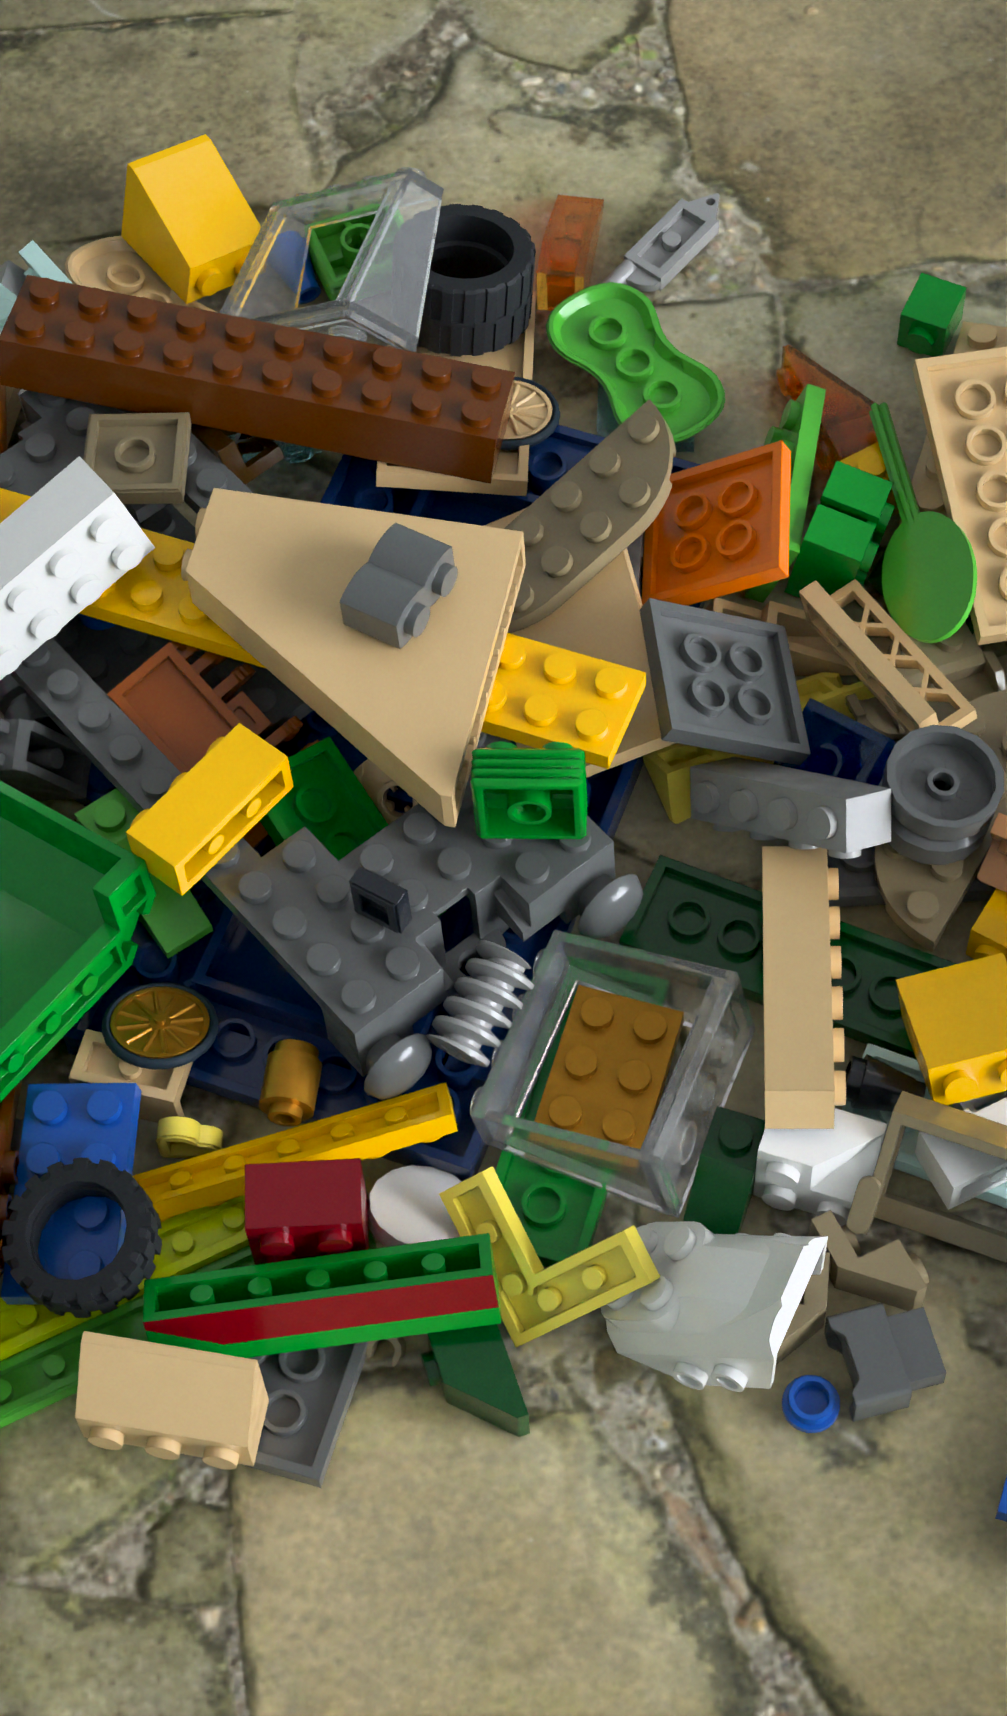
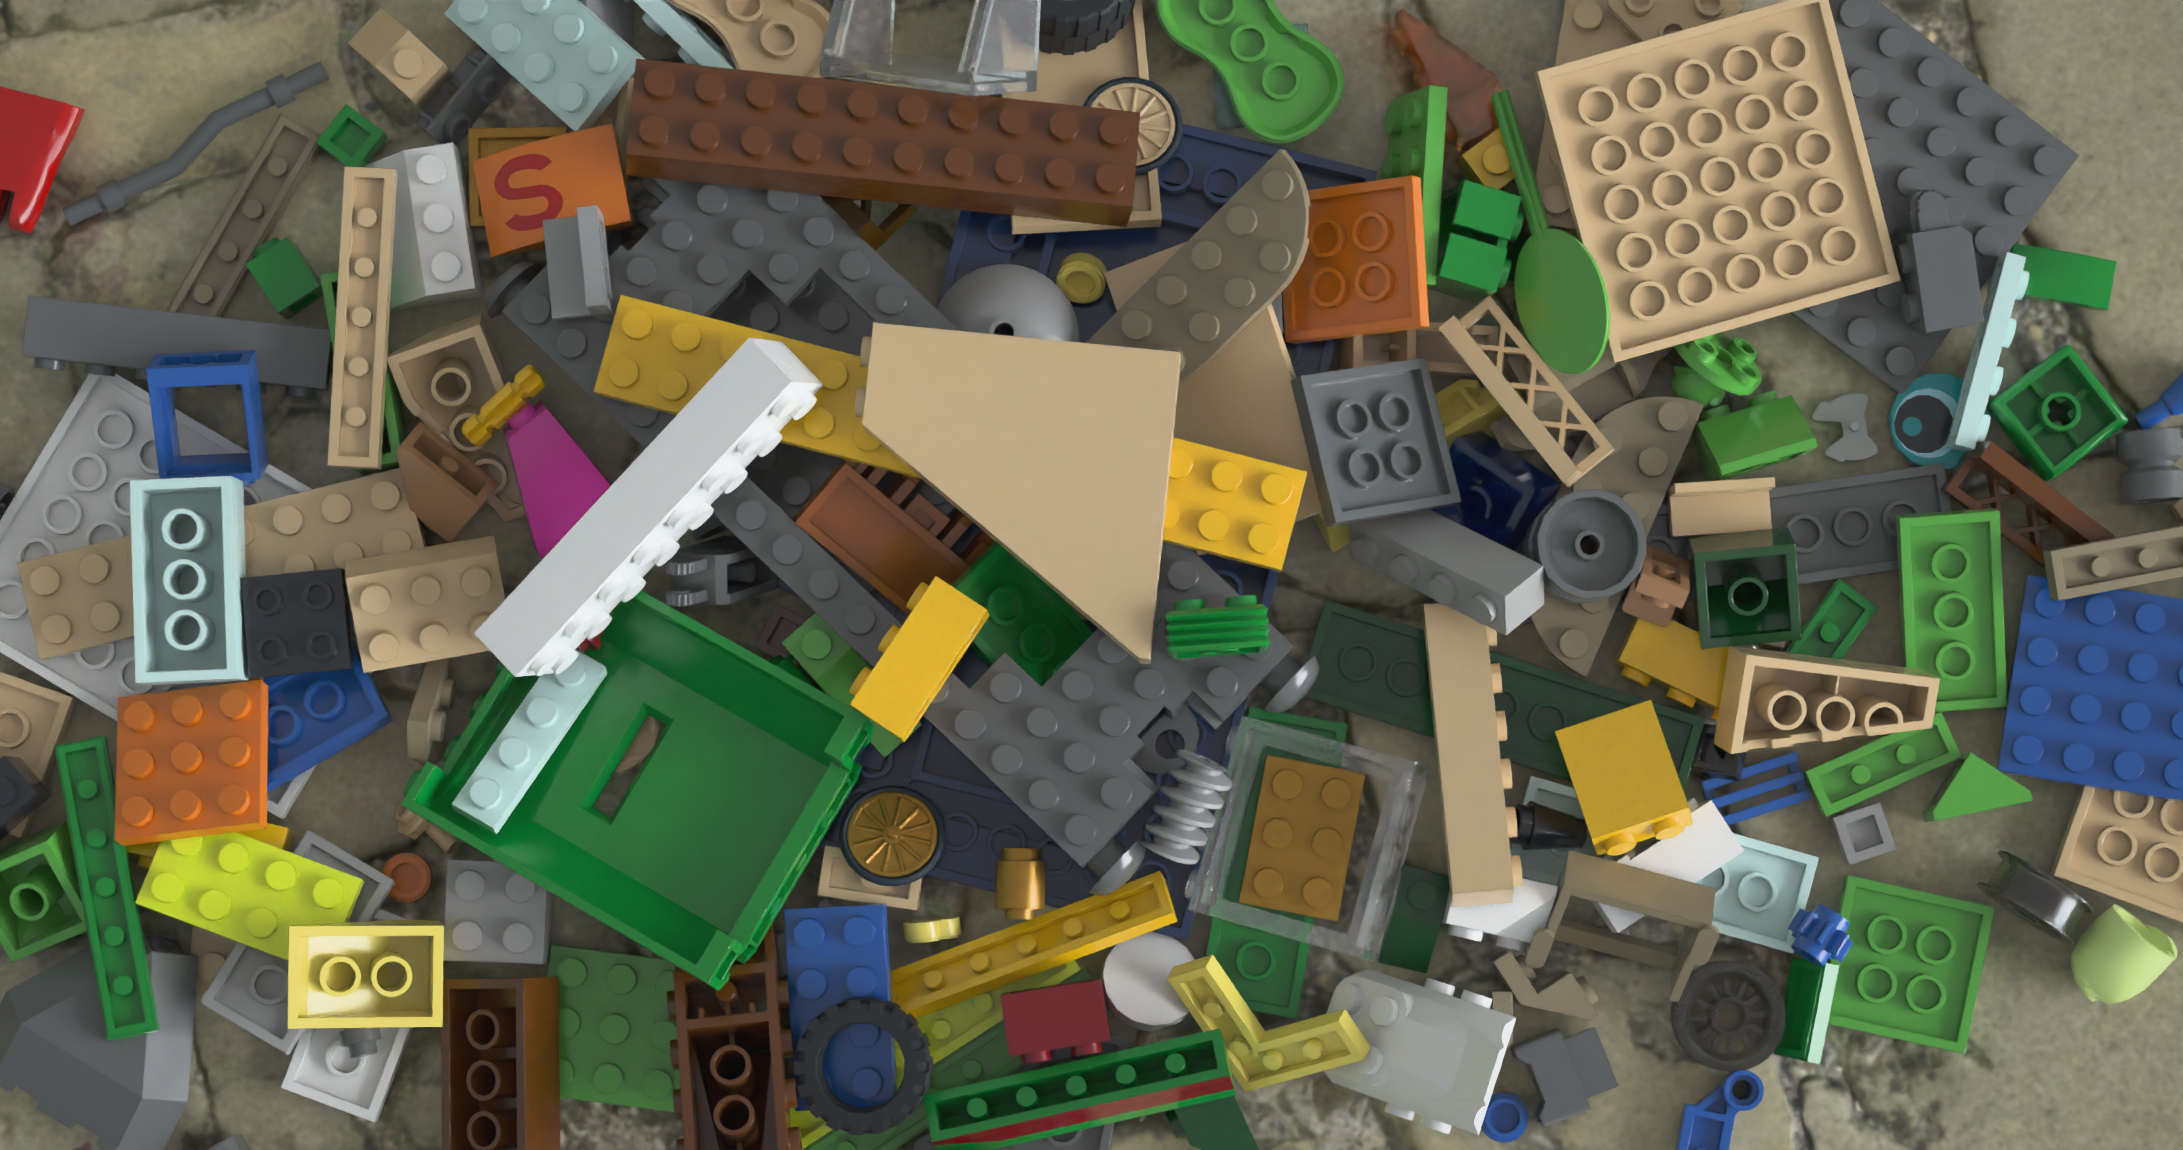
camera: 10 degrees left, 25 degrees up
(140, 455) = (777, 250): dark tan tile -> none
(380, 900) = (1092, 742): black tile -> none
(398, 586) = (1073, 439): dark grey brick -> none

